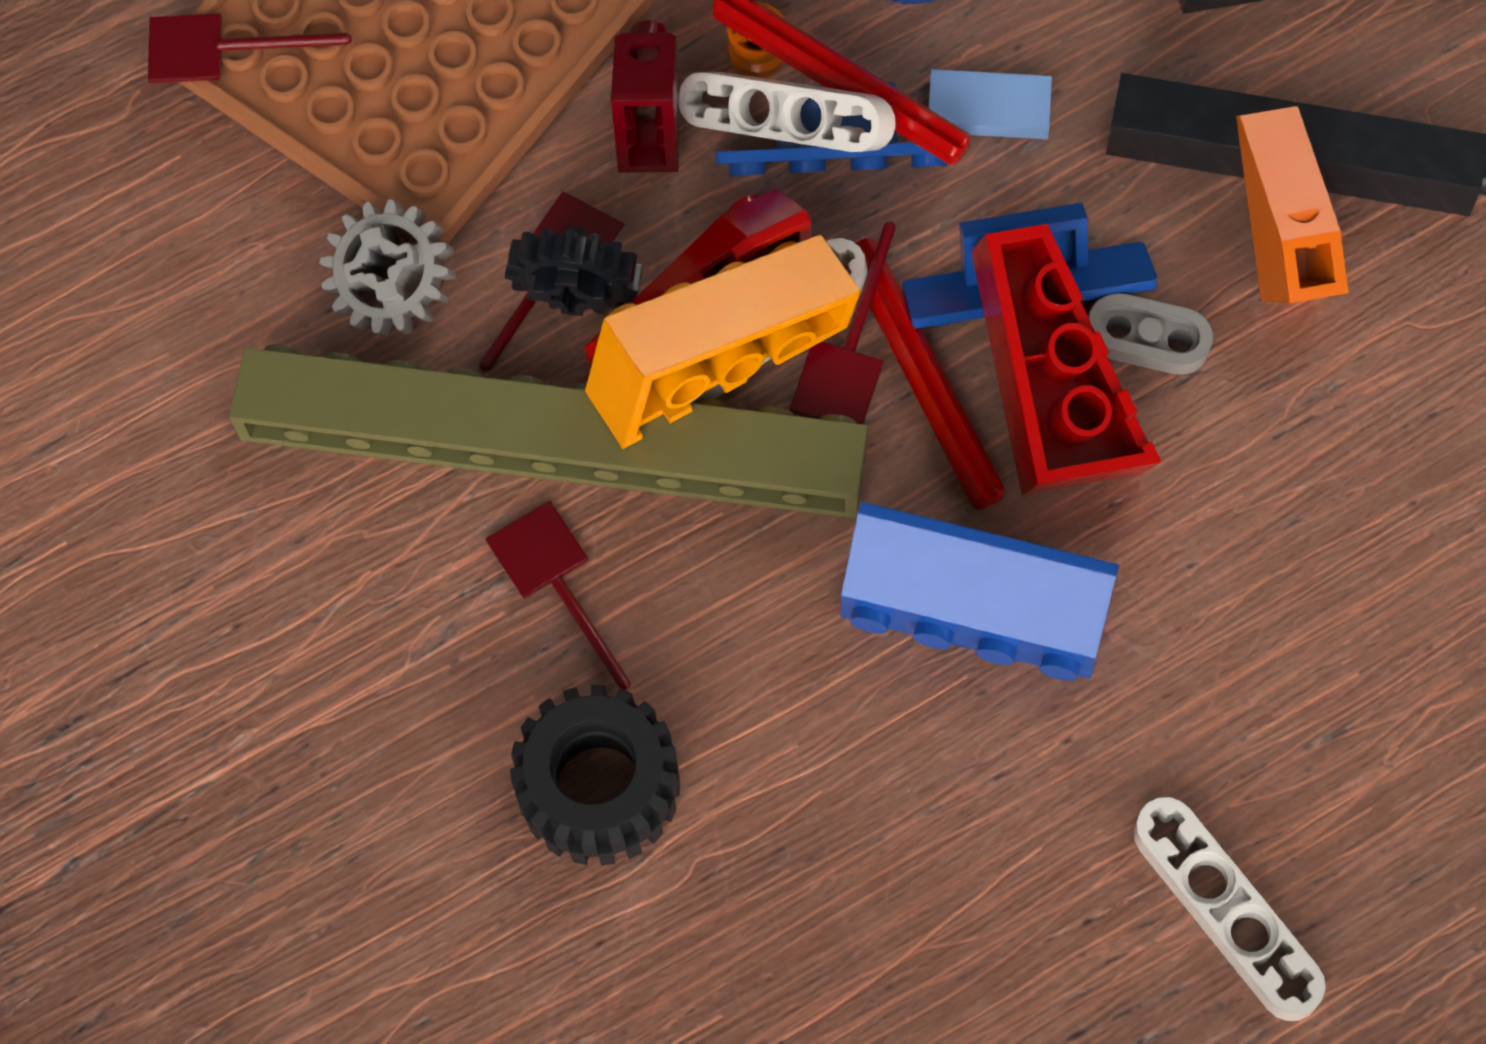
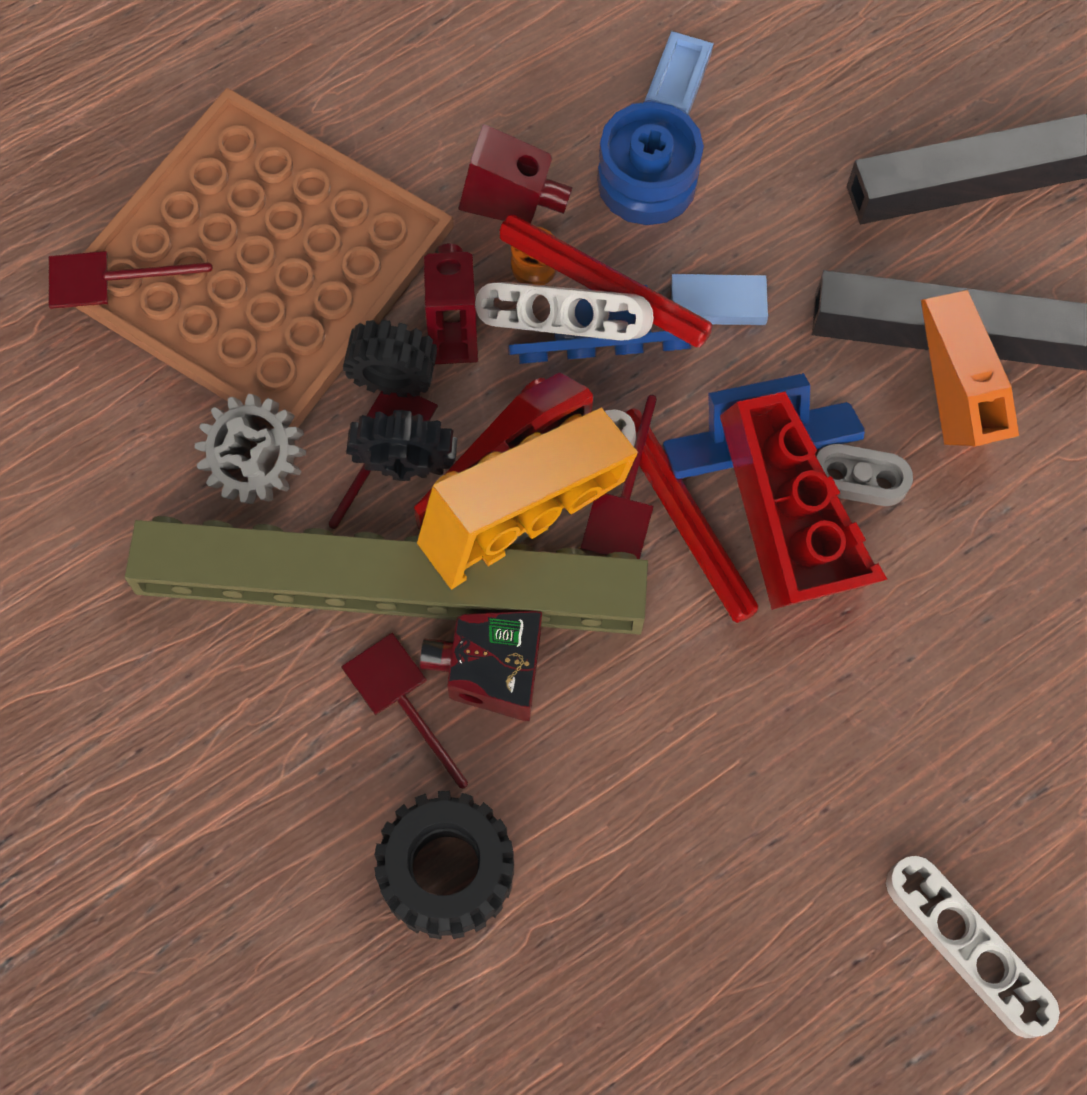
camera: 10 degrees left, 0 degrees up
(566, 163) = (390, 358): none -> black tyre
(667, 539) = (490, 661): none -> torso
(976, 592) = (749, 694): slope -> none

